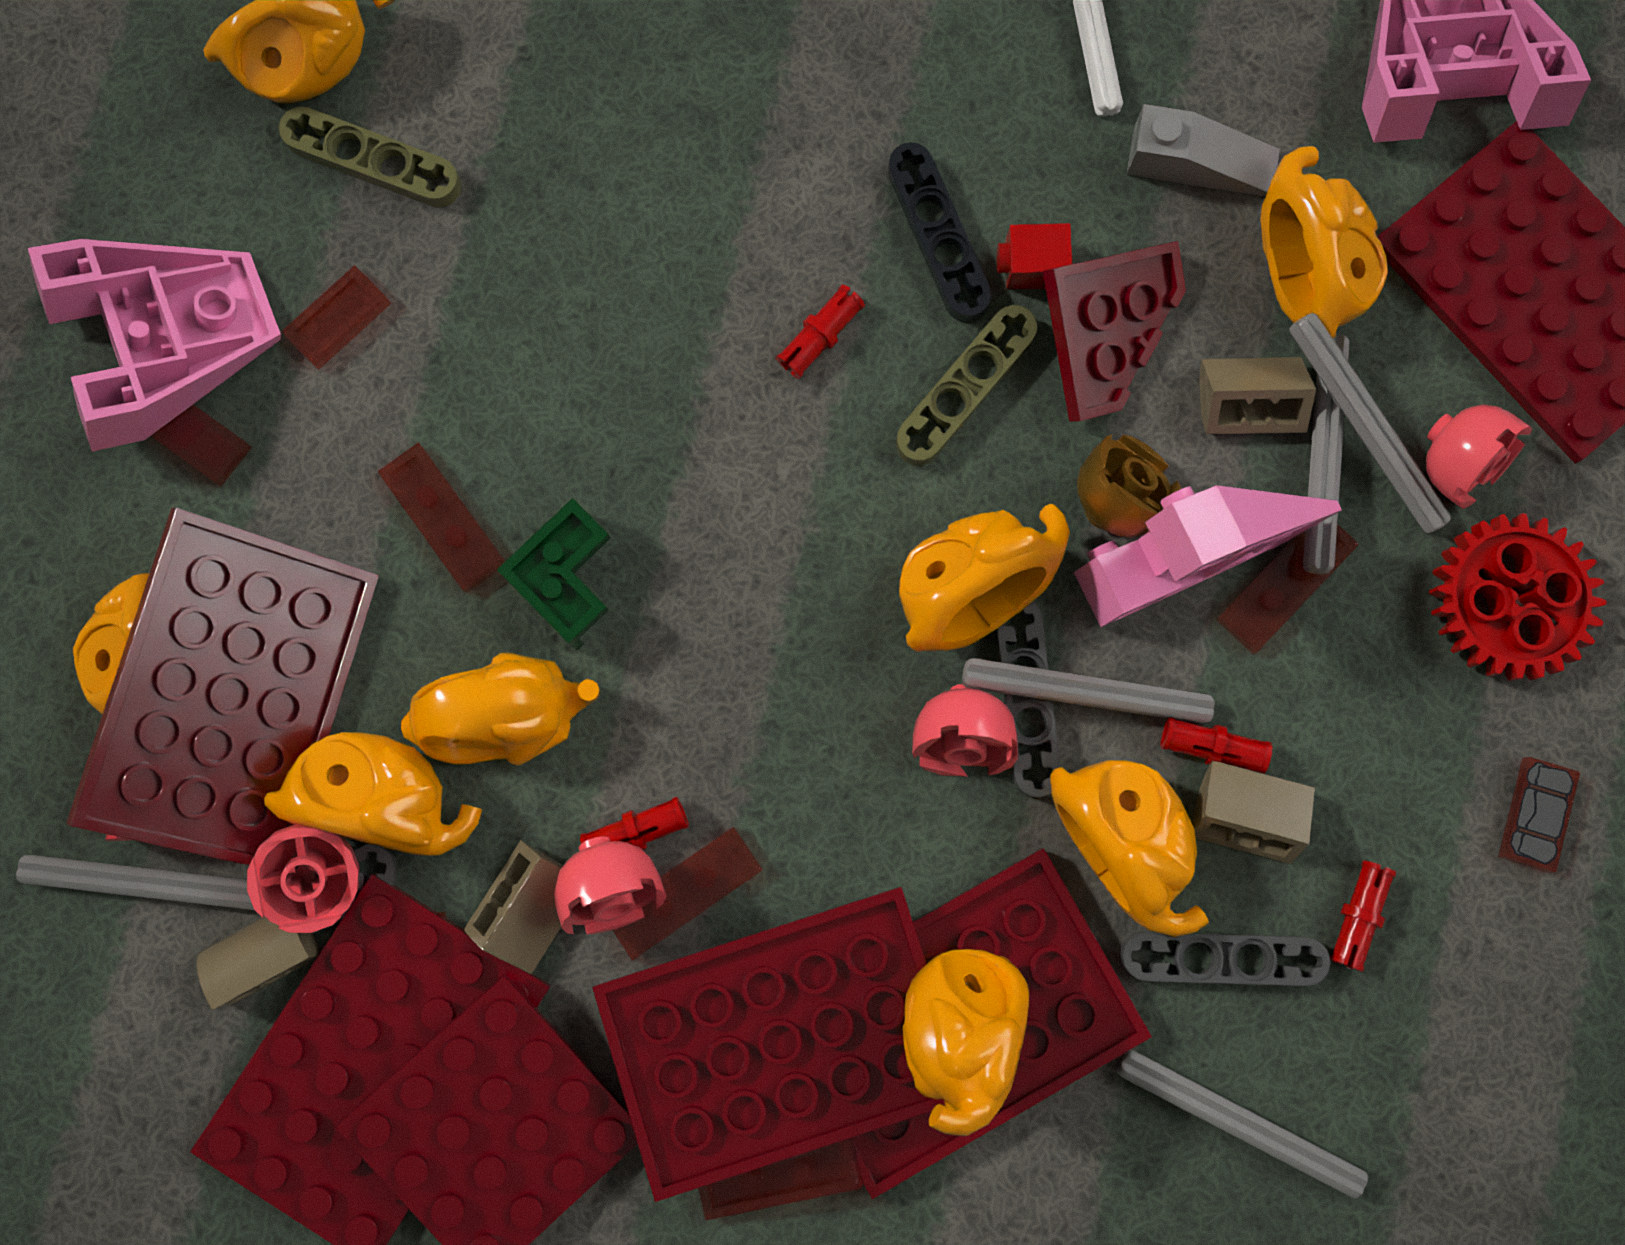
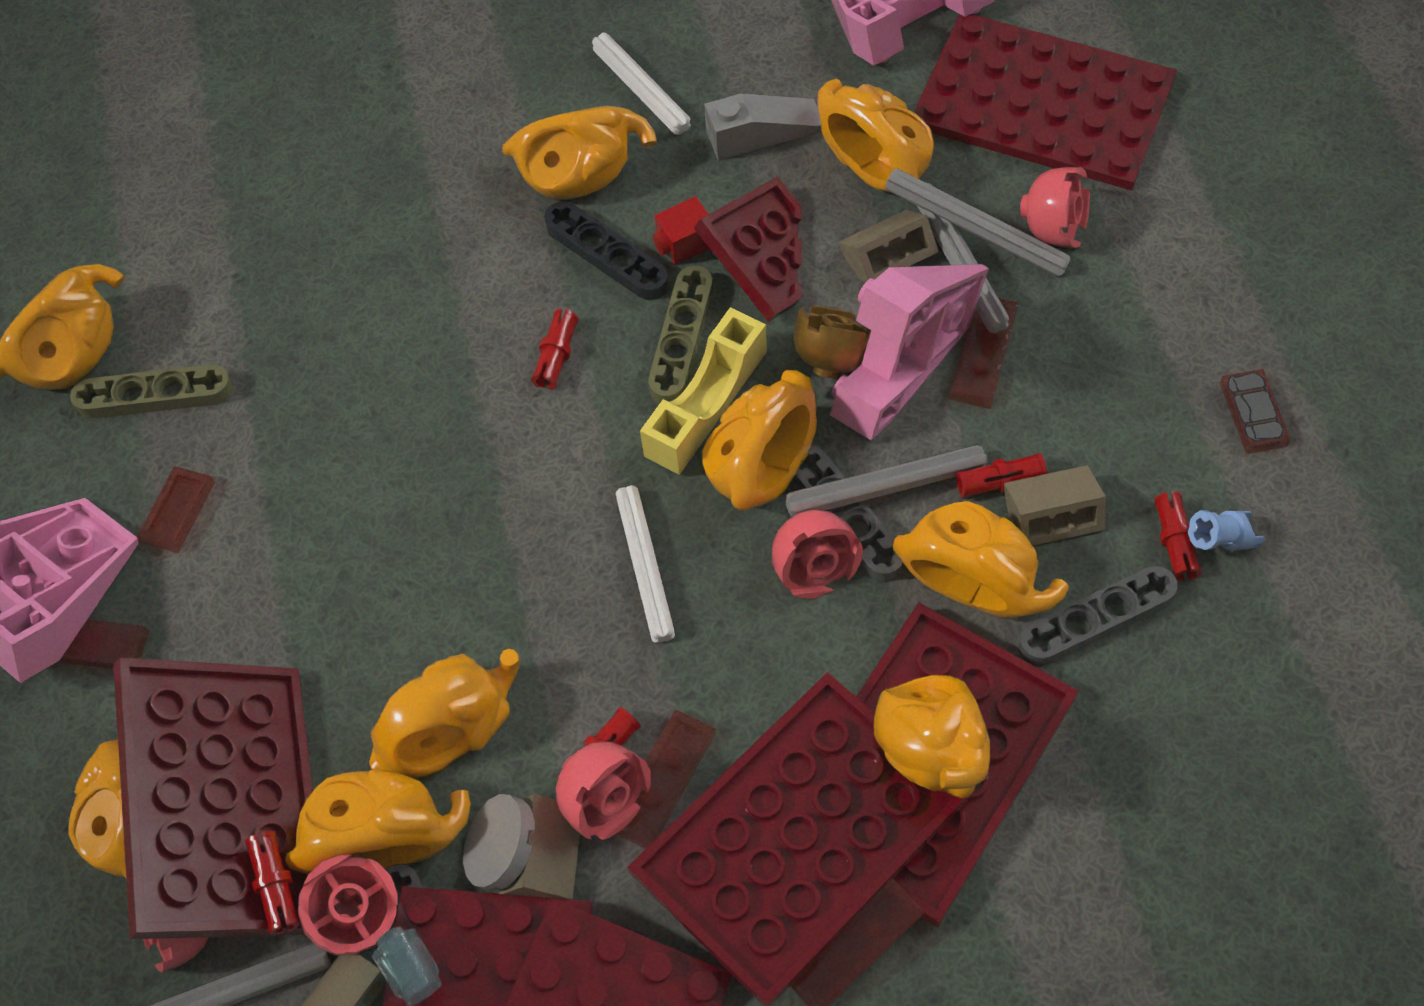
camera: 25 degrees left, 20 degrees down
(240, 816) = (272, 882): none -> red pin
(331, 973) = (407, 965): none -> clear light blue brick
(442, 517) = (329, 606): clear red tile -> none
(484, 882) = (498, 843): none -> light grey tile
(546, 568) = (436, 601): dark green panel -> none
(786, 643) = (645, 564): none -> white axle
(968, 91) = (576, 150): none -> light orange piece
(978, 465) = (683, 424): none -> light yellow arch
(1243, 1124) = (1184, 723): light grey axle -> none
(1419, 943) = (1228, 530): none -> light blue piece
(1536, 559) = (1147, 272): red gear -> none

